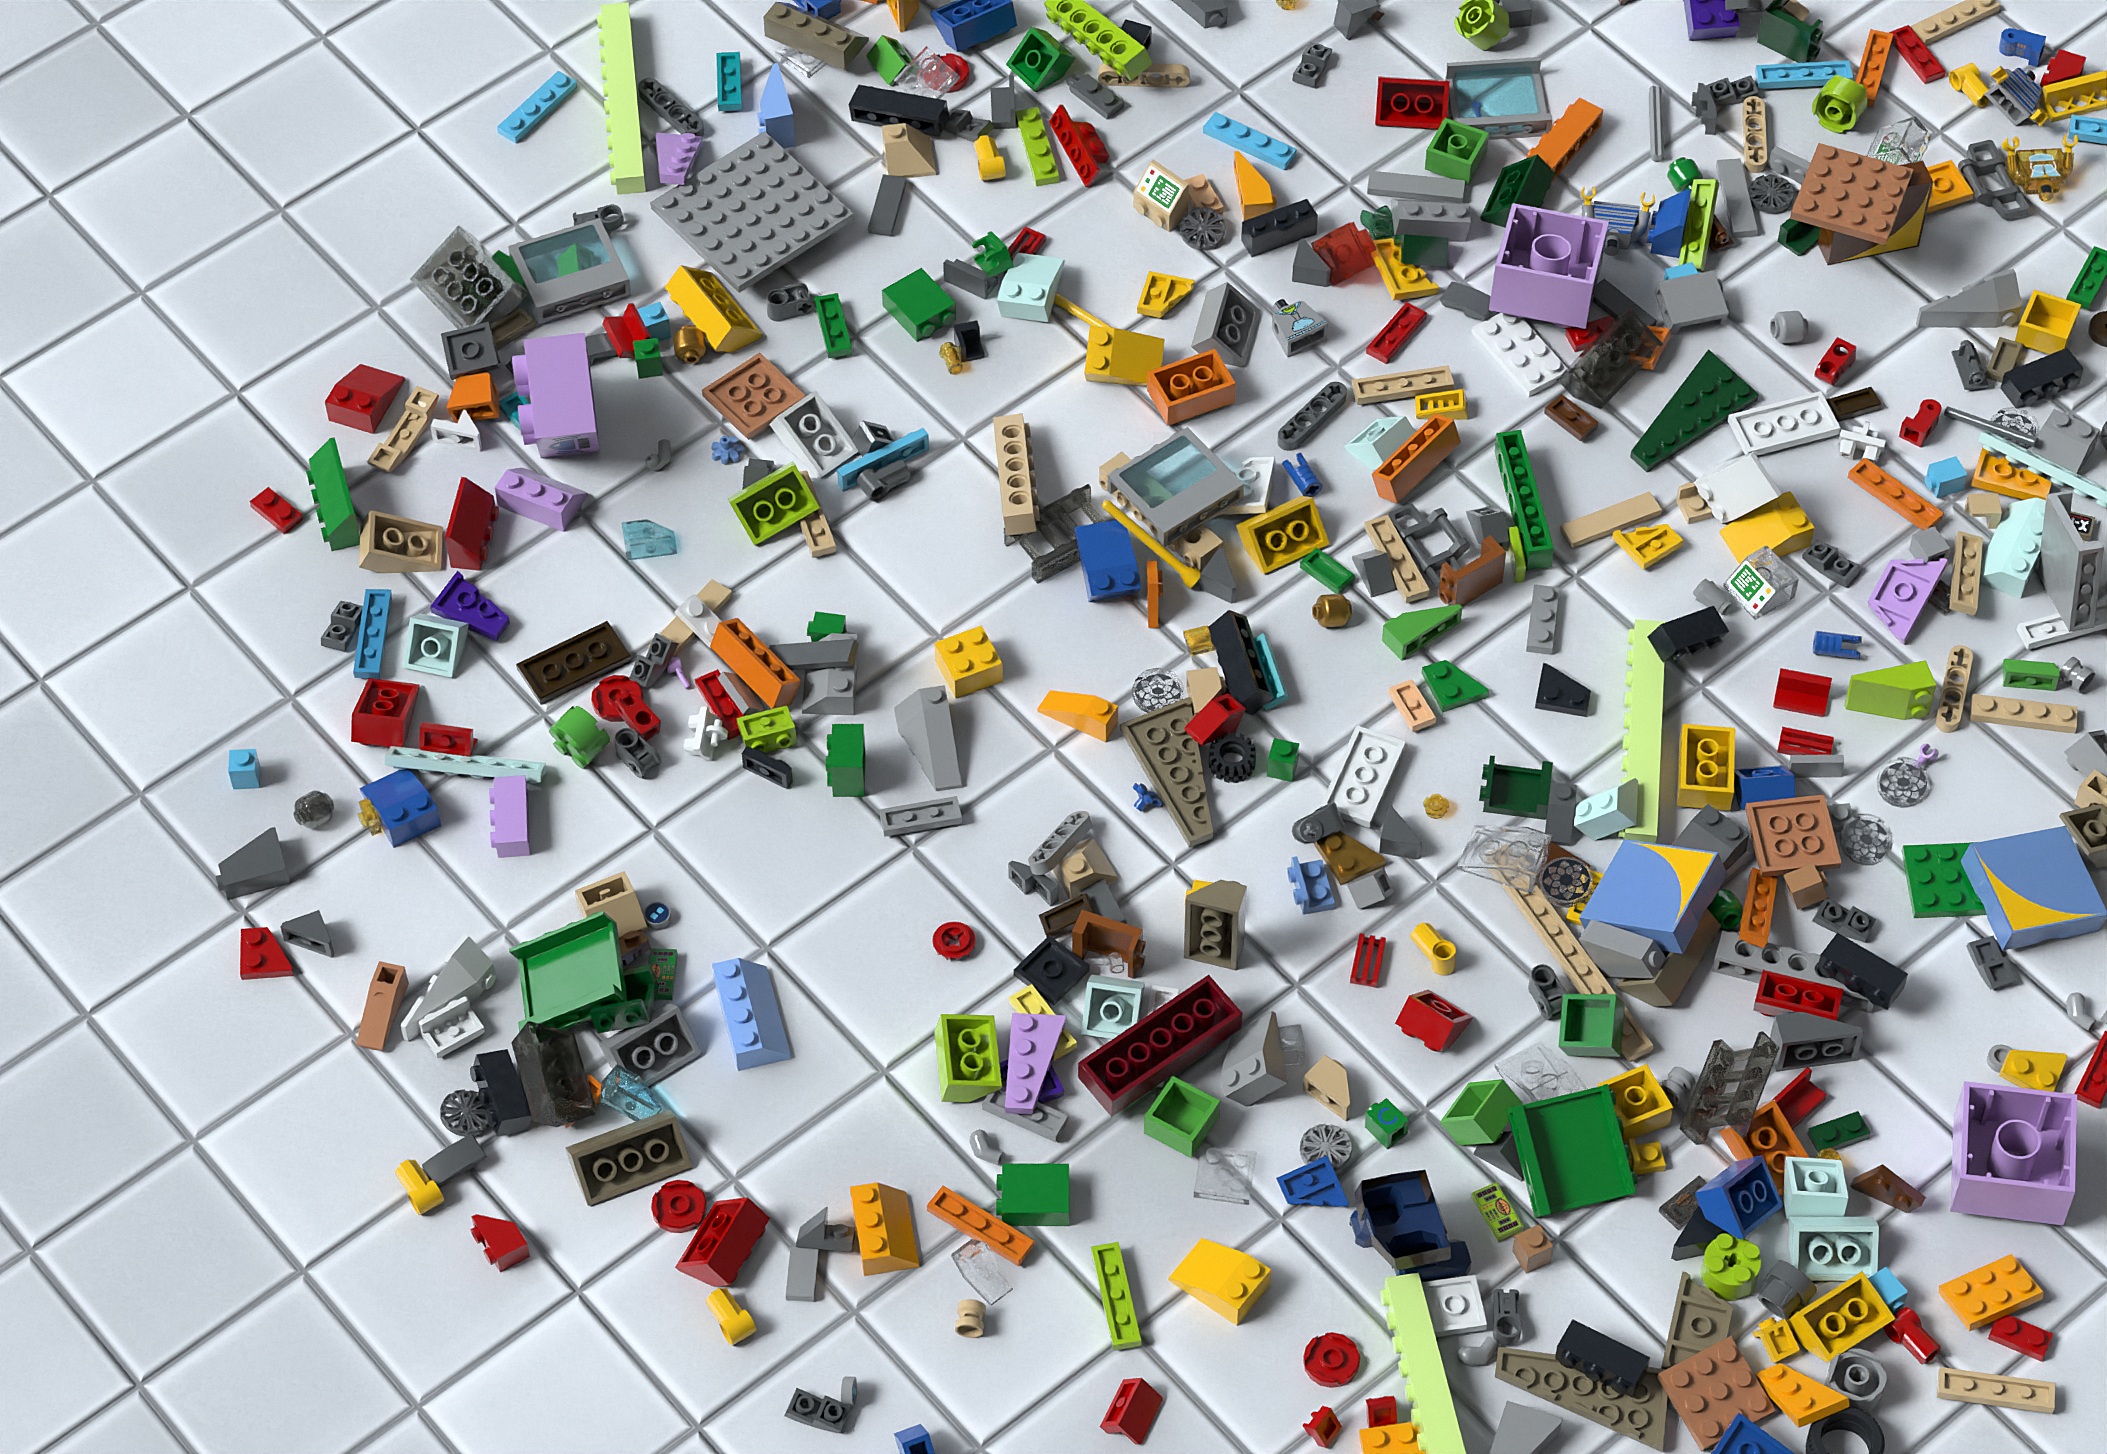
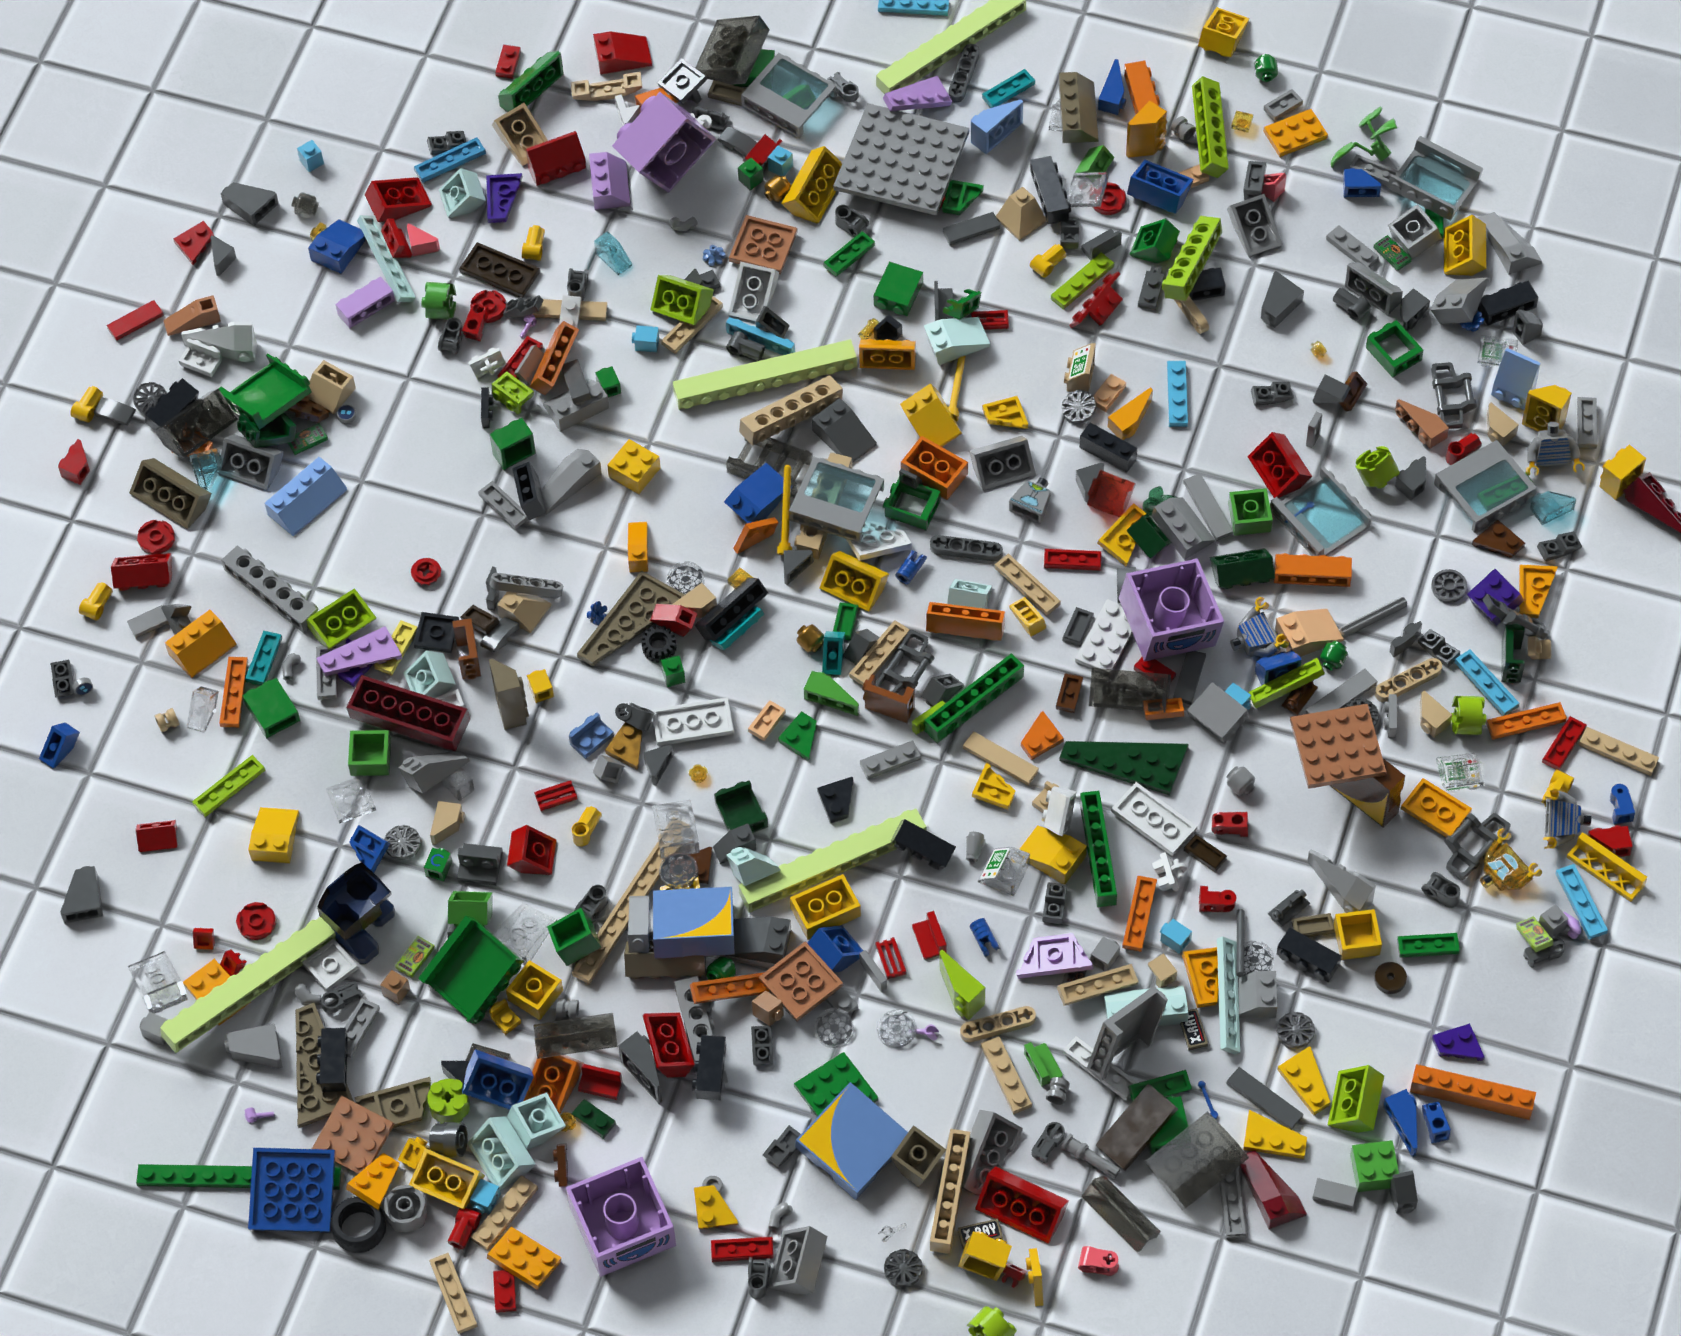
camera: 60 degrees right, 5 degrees up
(328, 1076) = (135, 320): none -> red tile
(470, 715) = (421, 241): none -> coral slope
(572, 612) = (533, 247): none -> yellow piece
(661, 594) = (577, 283): none -> dark grey piece
(796, 565) = (646, 338): none -> medium azure brick
(842, 187) = (960, 196): none -> green wing
(851, 1125) = (260, 587): none -> light grey brick
(929, 775) = (529, 490): none -> black brick
(937, 481) = (765, 374): none -> yellowish green brick
(954, 1169) = (263, 658): none -> teal plate
(1002, 354) = (887, 354): none -> light orange slope
(1071, 447) = (842, 430): none -> dark grey slope
(1194, 414) = (909, 479): none -> dark grey slope
(1240, 420) = (923, 492): none -> green window
(1366, 598) = (833, 652): none -> teal slope
(1394, 47) = (1314, 429): none -> light grey tile
(1412, 1081) = (479, 864): none -> dark grey bracket
(1487, 370) = (1078, 626): none -> dark grey tile
(1551, 1307) = (360, 1023): none -> light grey plate
(1608, 471) = (1041, 737): none -> orange wing
(1635, 177) = (1308, 630): none -> light nougat slope
(1660, 46) = (1449, 585): none -> flat silver wheel
(1809, 132) = (1433, 715): none -> tan slope
(1813, 491) = (1098, 849): none -> green brick
(1921, 1296) = (504, 1213): none -> tan plate
(2033, 232) = (1439, 887): none -> dark grey piece

